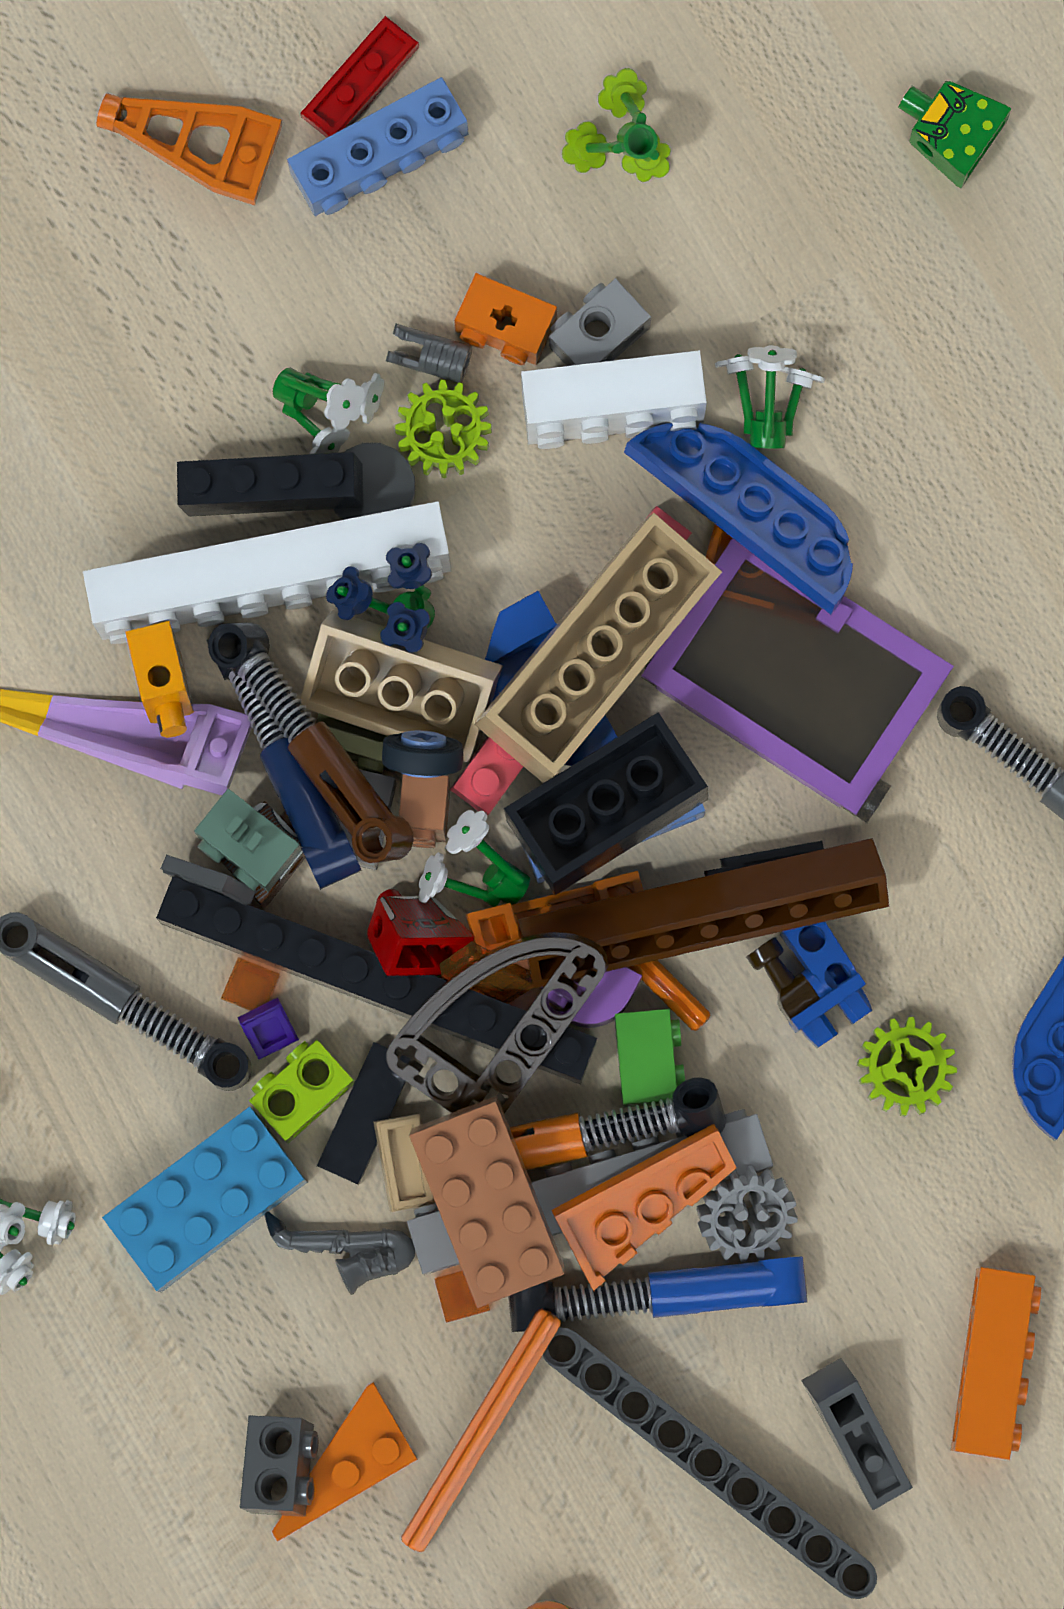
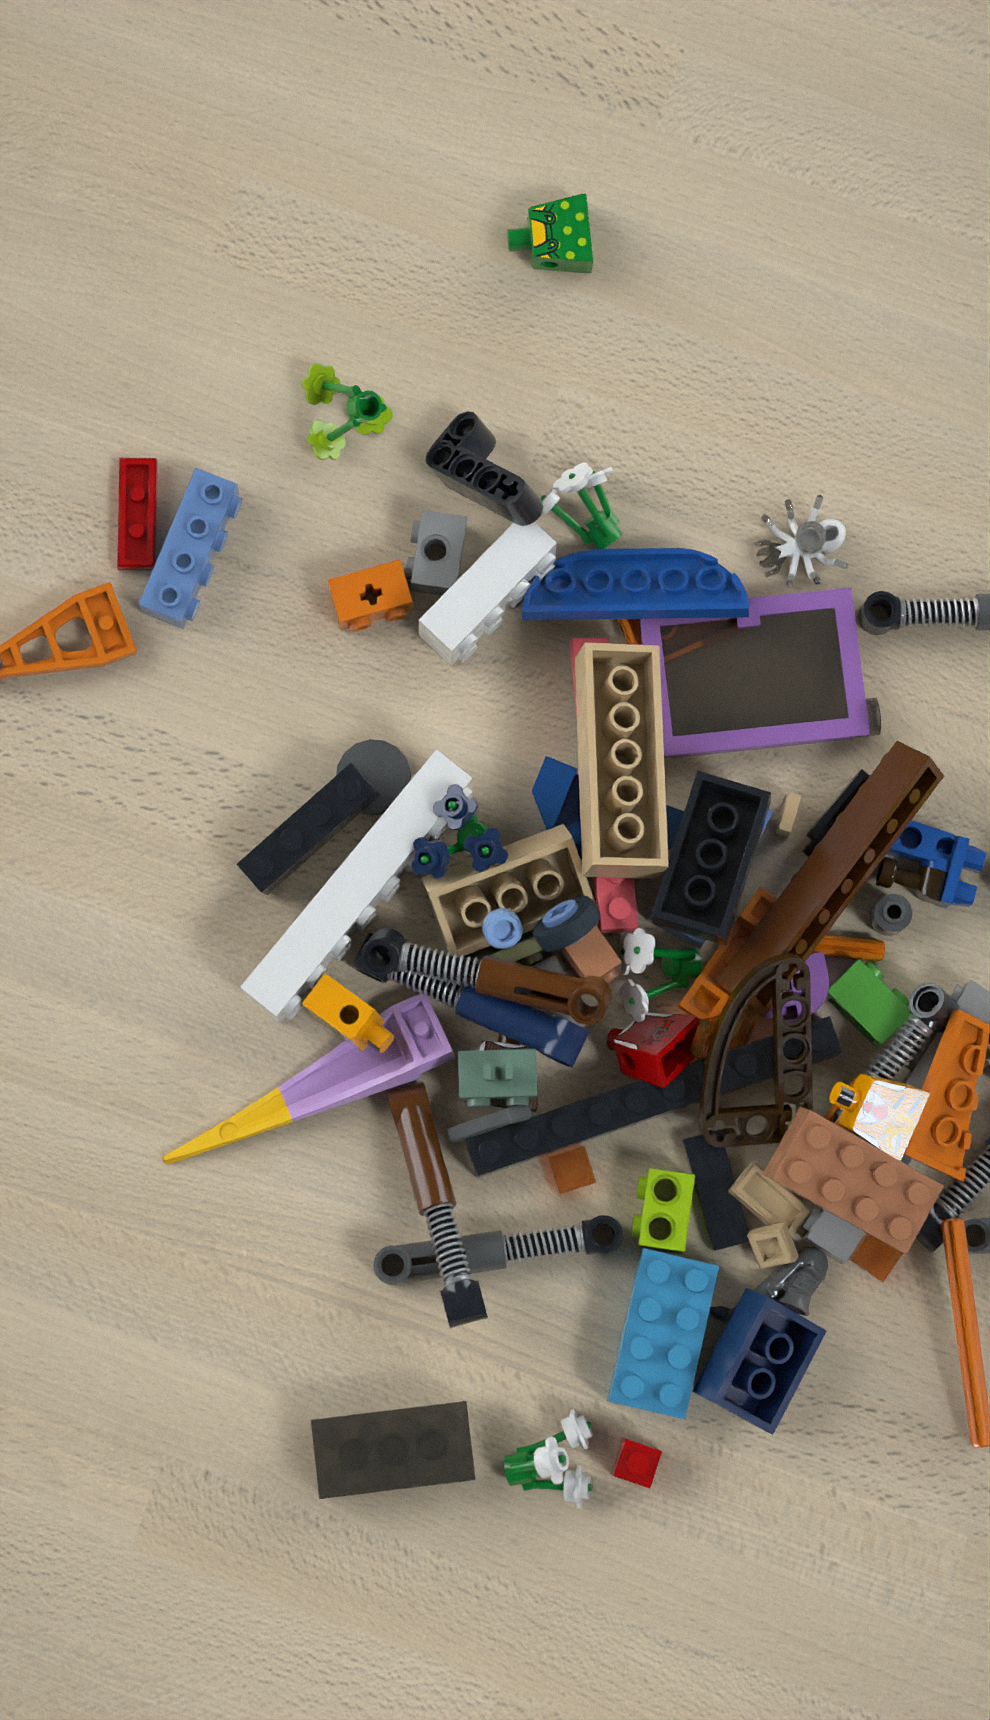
camera: 50 degrees left, 0 degrees up
(83, 1295) = (636, 1462): none -> red brick
(146, 819) = (436, 1201): none -> piece
(265, 1466) = (849, 1473): dark grey brick -> none
(268, 1028) = (607, 1187): dark purple tile -> none
(268, 1296) = (759, 1360): none -> dark blue brick
(343, 401) = (319, 735): plant -> none
(359, 1456) = (900, 1415): orange wing -> none
(364, 713) = (502, 928): none -> light blue tile
(372, 1204) = (772, 1245): none -> tan tile
(419, 420) = (410, 694): lime gear -> none
(438, 356) = (347, 653): dark grey hinge -> none
(565, 1159) = (880, 1111): none -> torso
(686, 262) = (462, 466): none -> black beam
(718, 826) = (787, 815): none -> tan tile
(735, 1009) = (883, 923): none -> dark grey brick
(950, 591) = (809, 542): none -> animal

